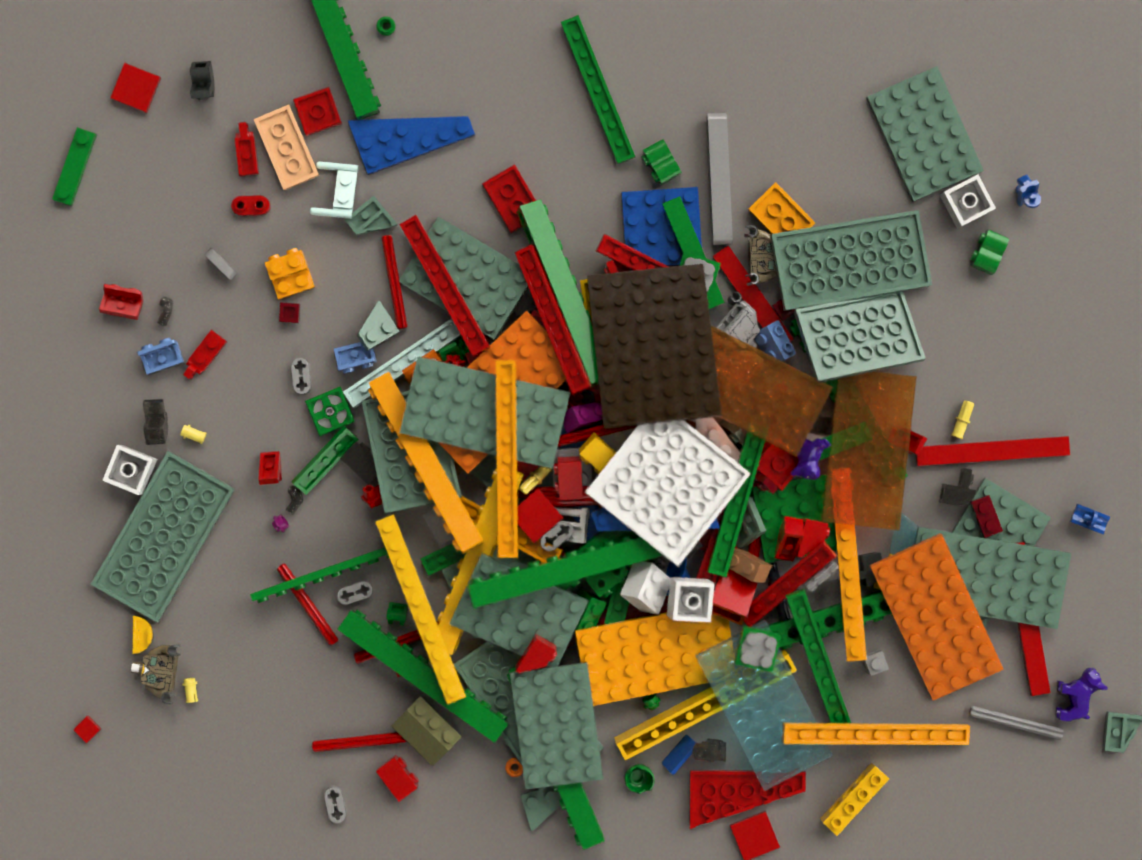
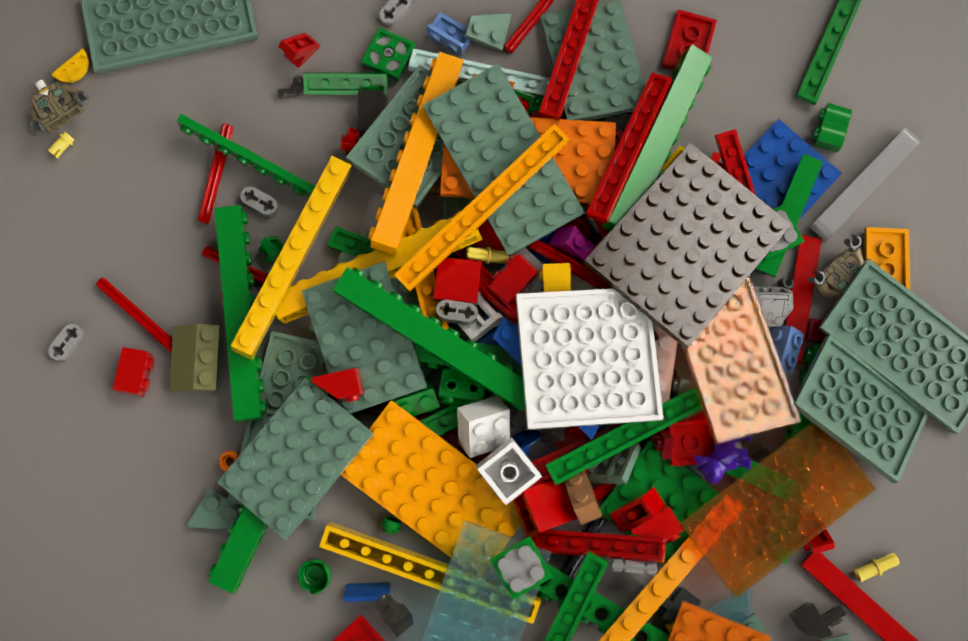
camera: 50 degrees right, 10 degrees down
(280, 523) = (262, 94): magenta plate -> none

